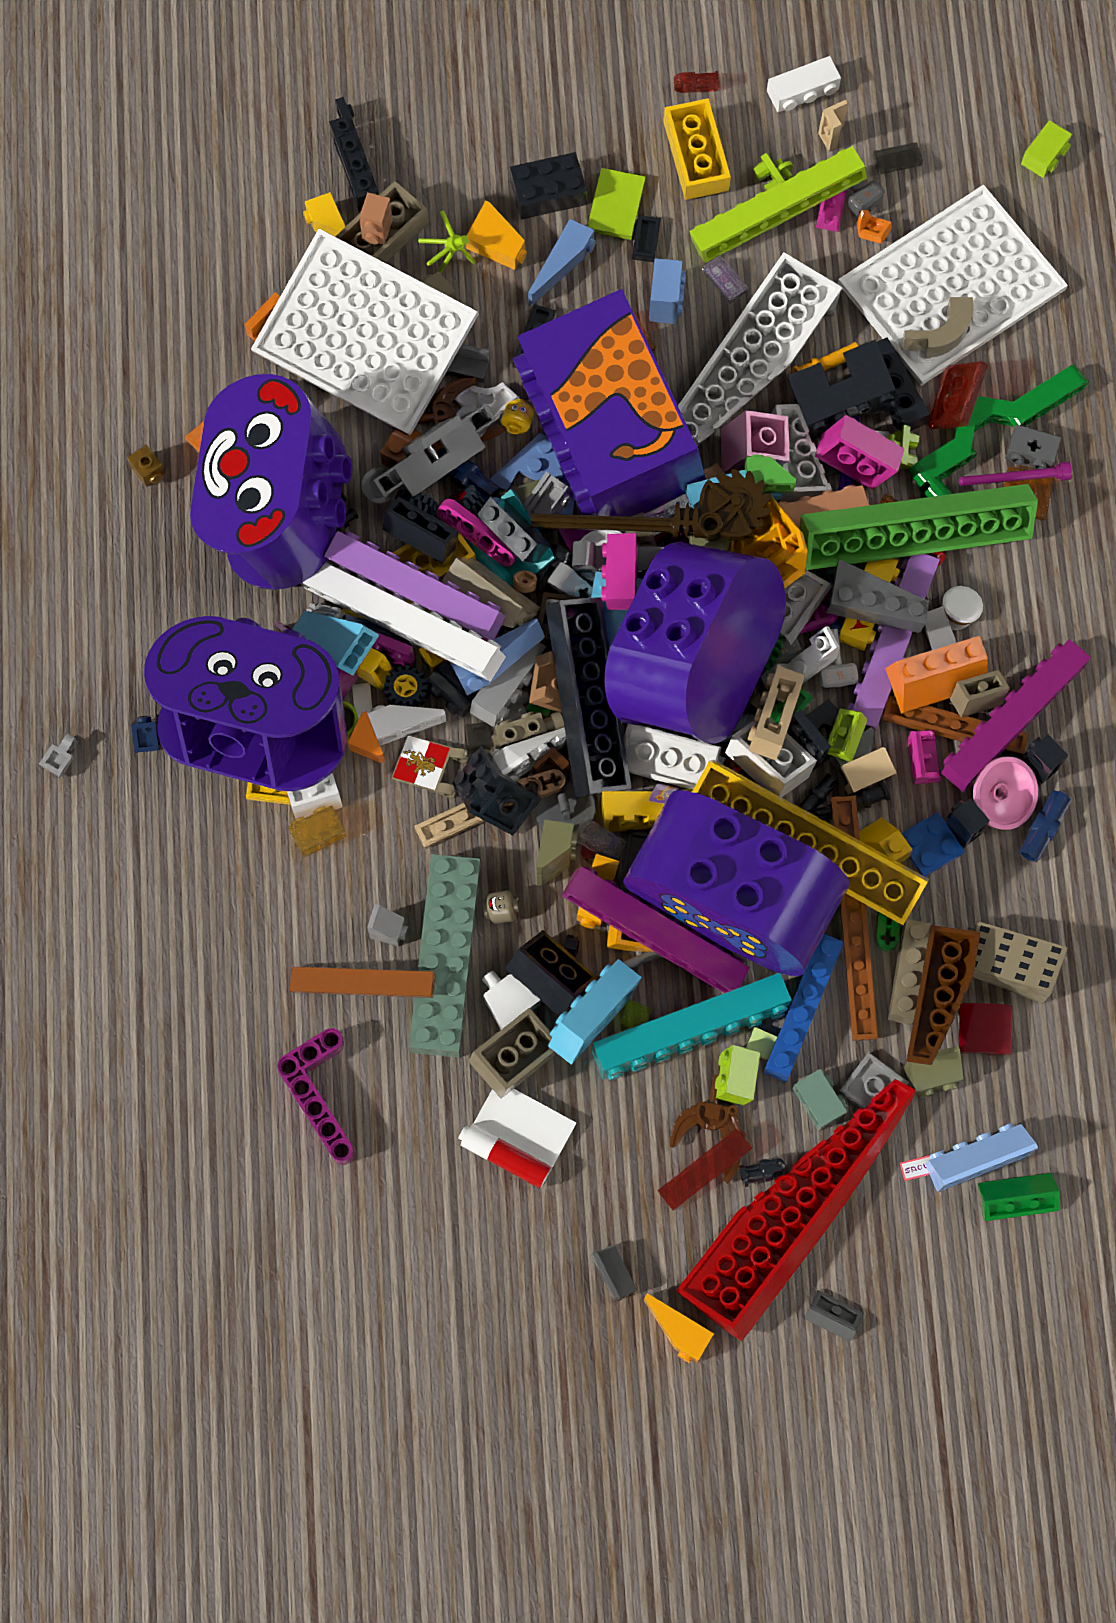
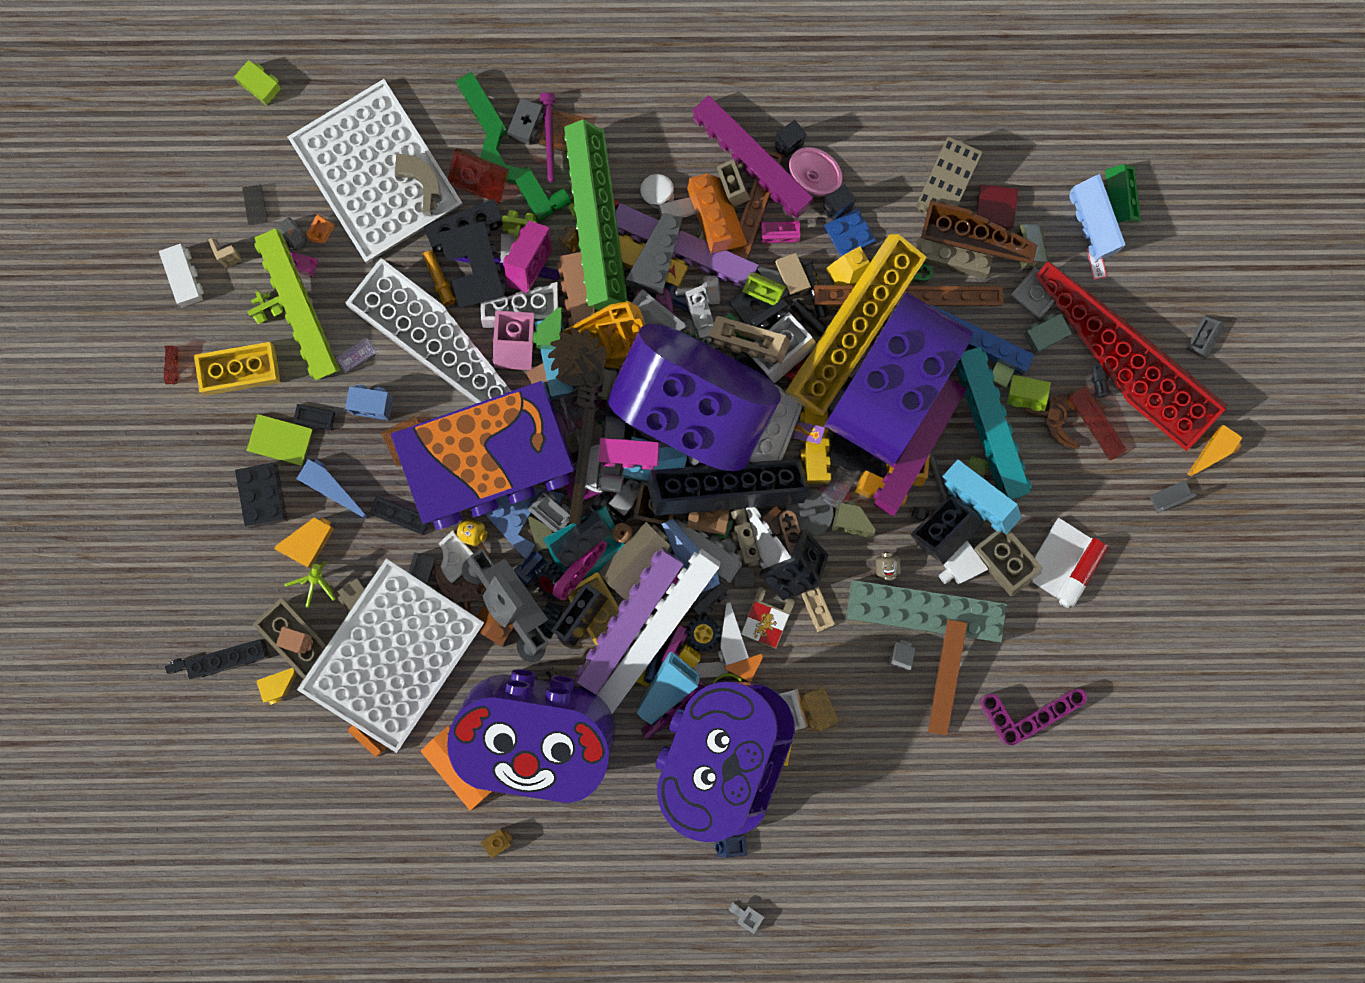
camera: 90 degrees left, 10 degrees up
(325, 610) = (636, 696): light grey axle -> none
(1045, 826) = (840, 145): dark blue piece -> none

